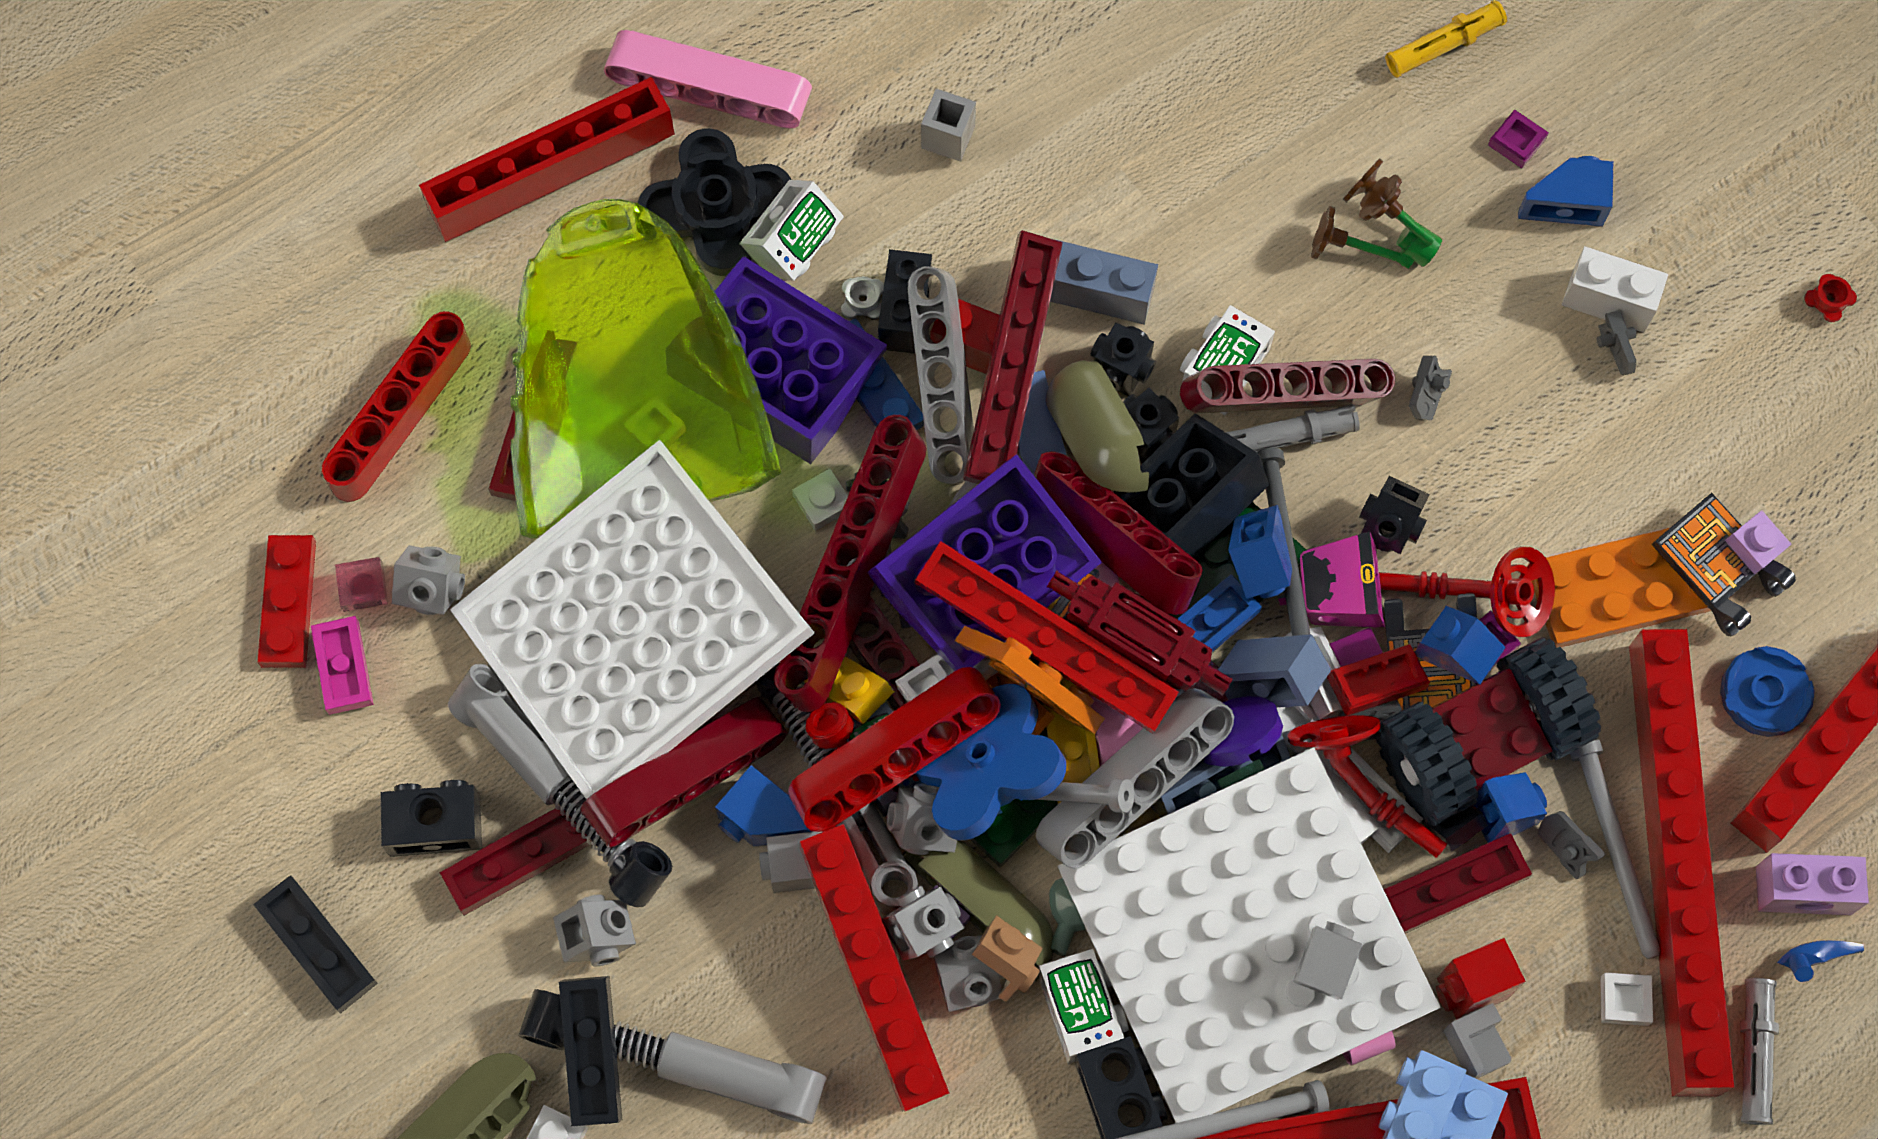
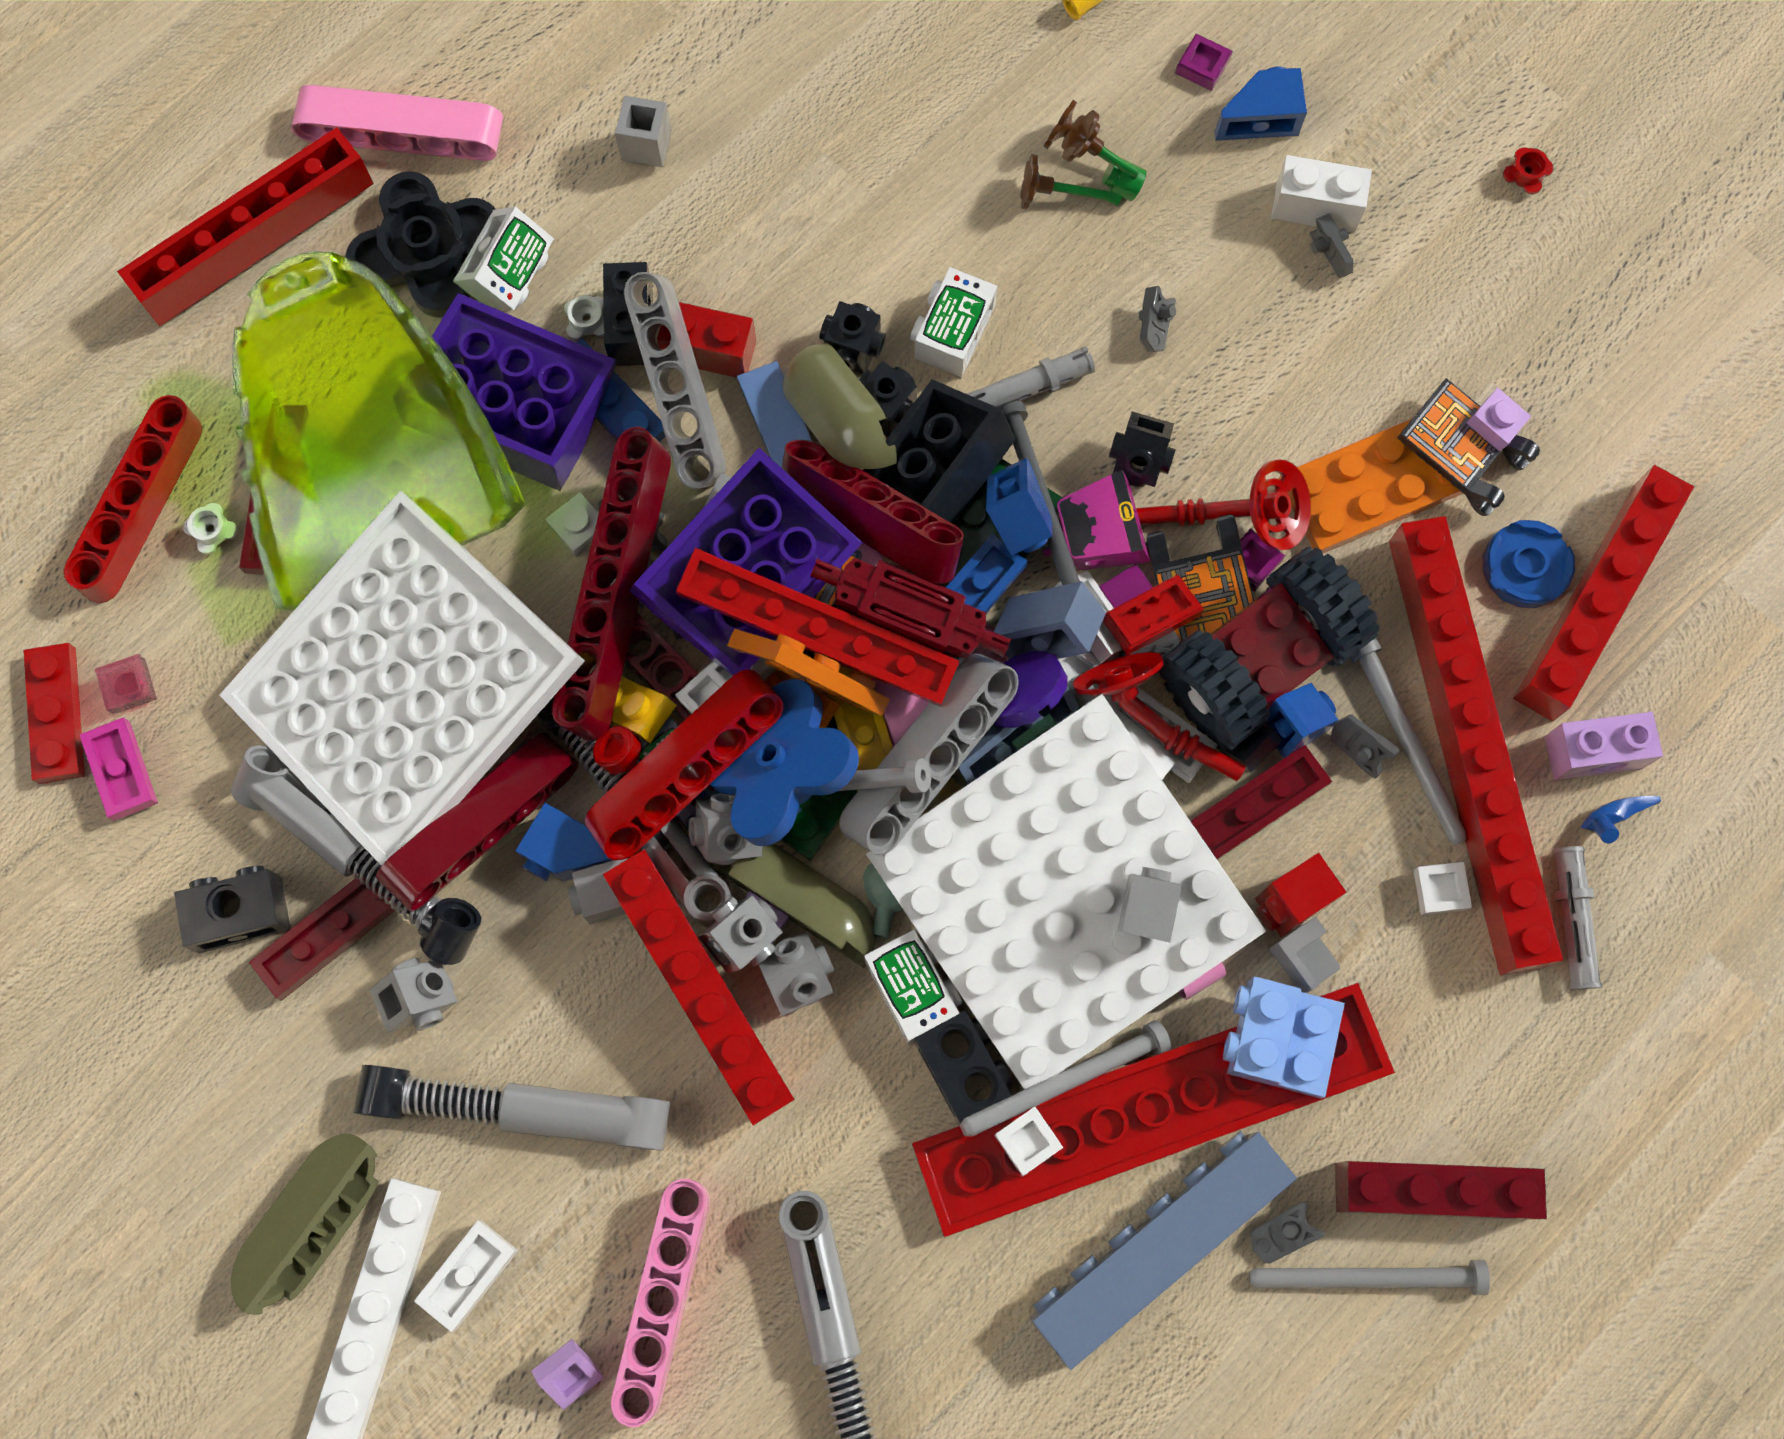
camera: 10 degrees left, 5 degrees up
(315, 944) = (134, 1055): black plate -> none
(427, 580) = (190, 669): light grey brick -> none
(461, 434) = (203, 517): none -> plate
(590, 1051) = (426, 1119): black plate -> none
(1009, 955) = (831, 951): medium nougat bracket -> none
(1013, 355) = (742, 348): dark red tile -> none
(1104, 283) = (805, 263): sand blue brick -> none
(1269, 390) = (1004, 349): dark red beam -> none
(1460, 645) = (1229, 568): blue slope -> none

